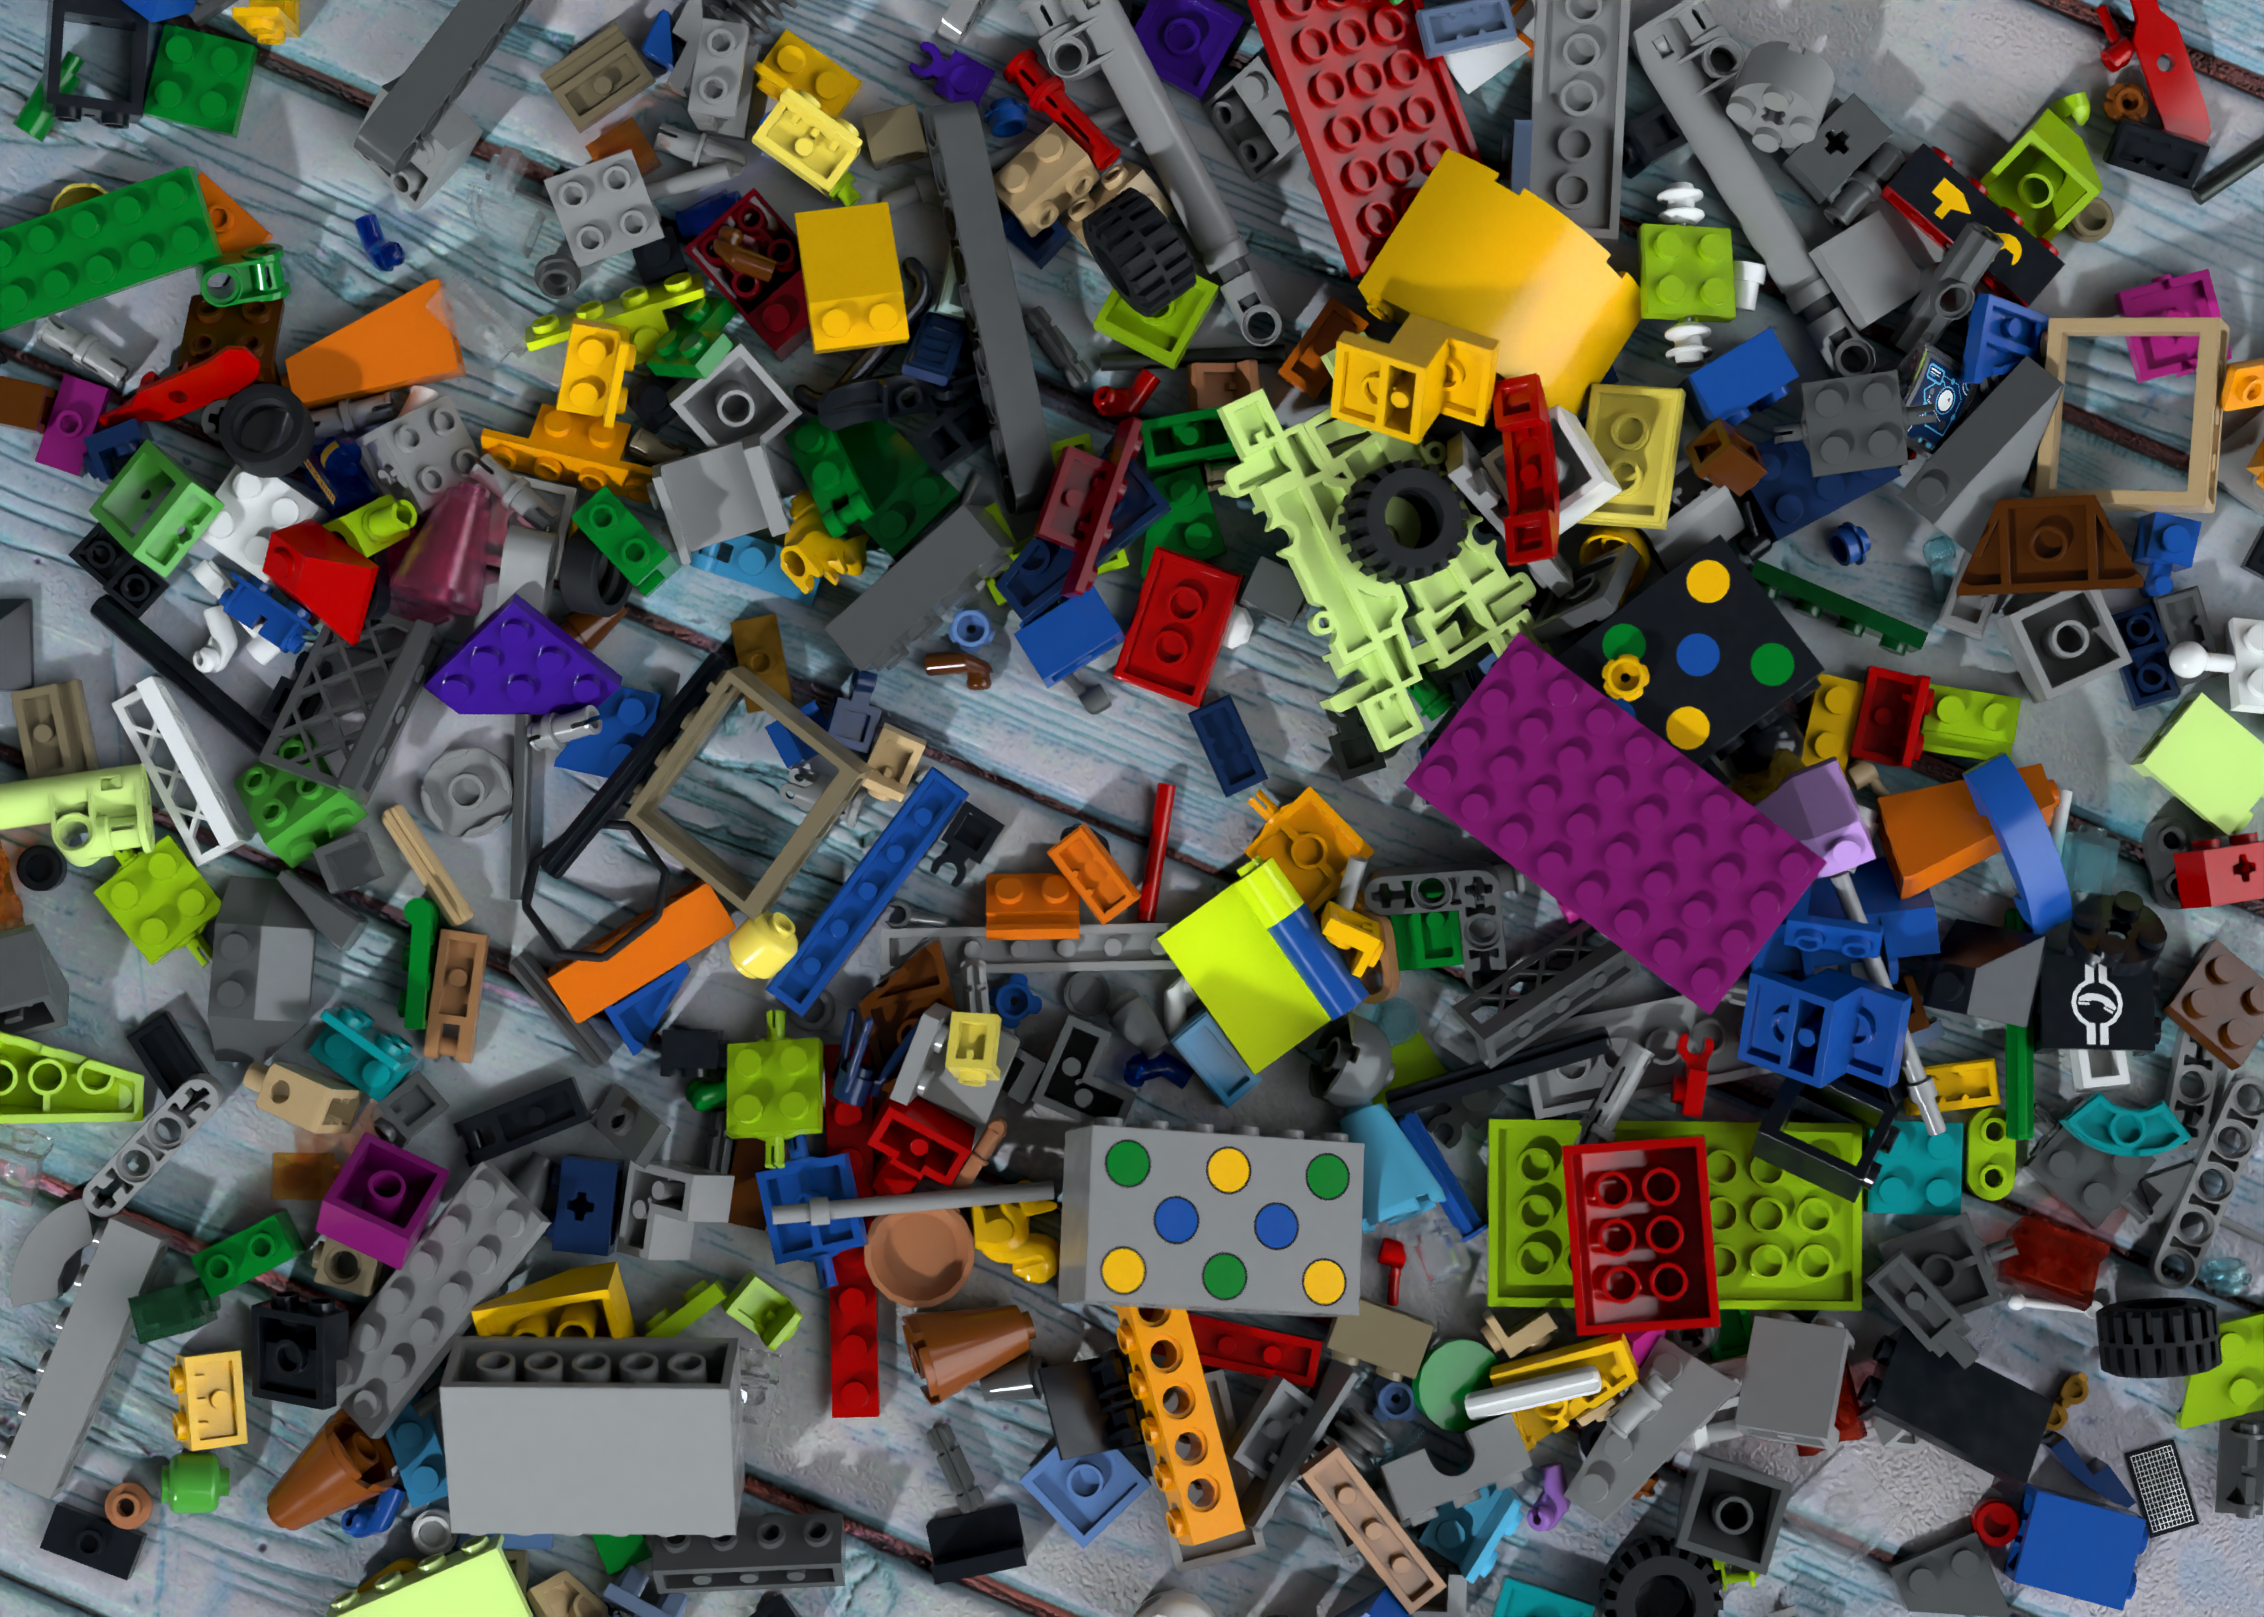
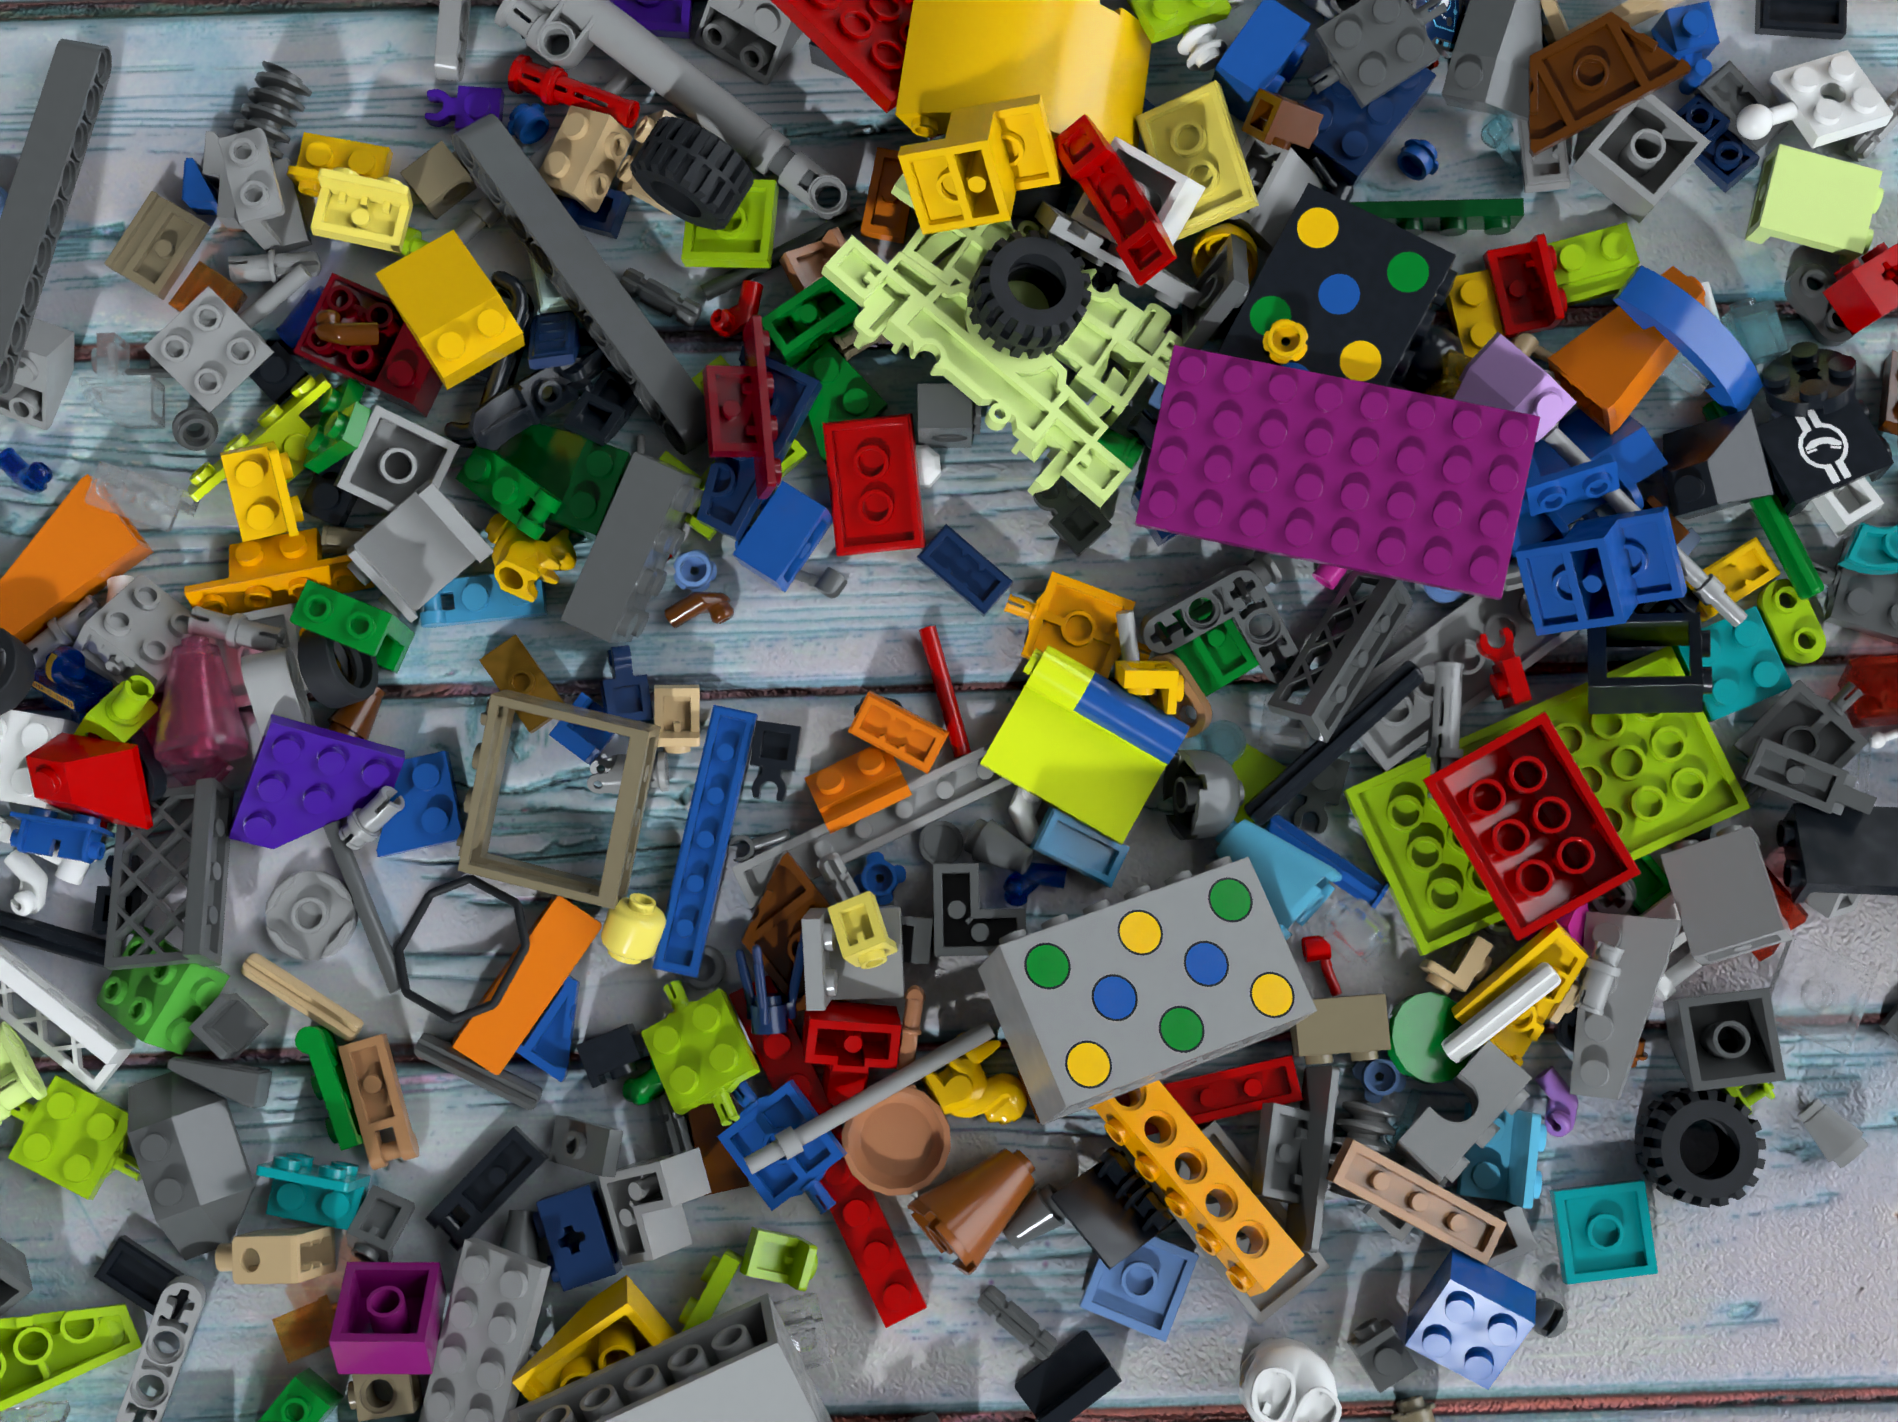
camera: 25 degrees left, 5 degrees down
(631, 769) = (445, 830): black axle -> none

